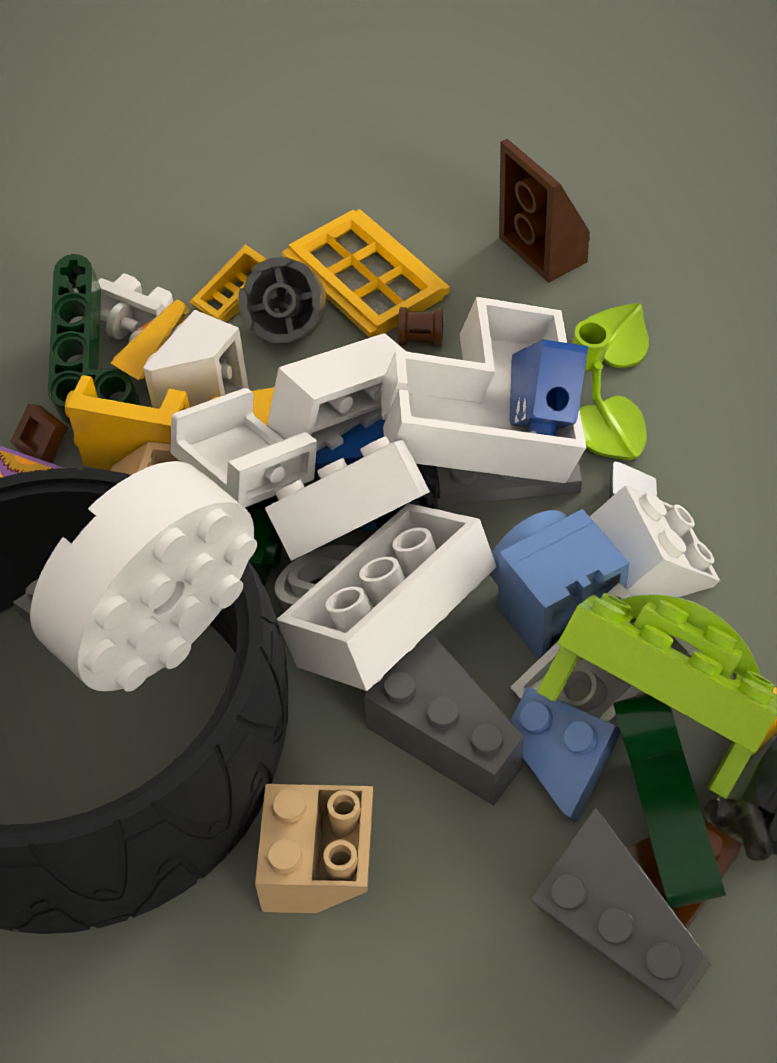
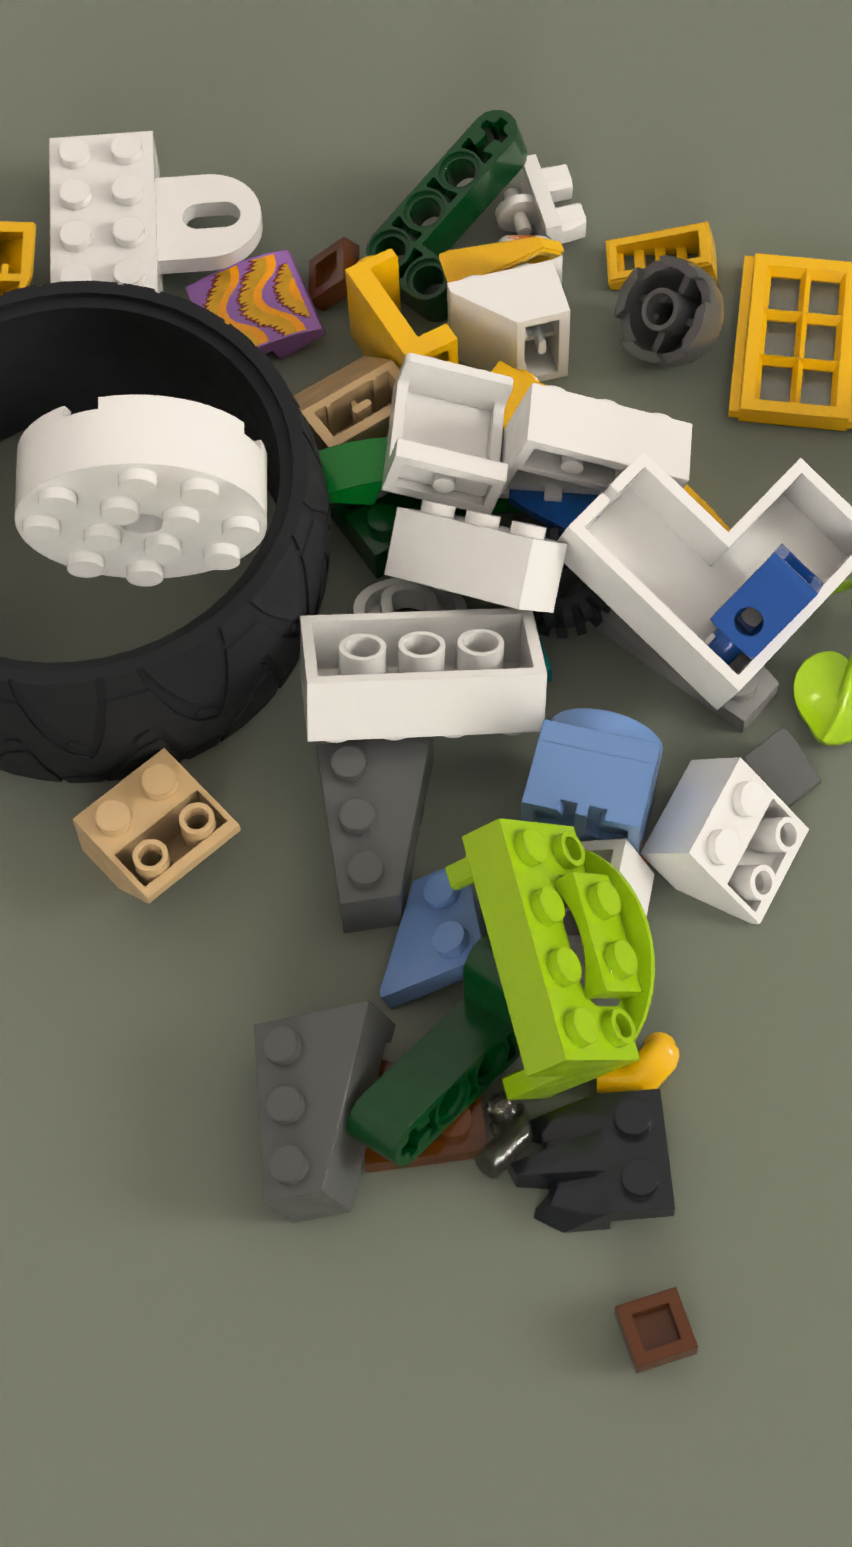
camera: 45 degrees right, 10 degrees up
(420, 326) = (778, 441): reddish brown bush -> none

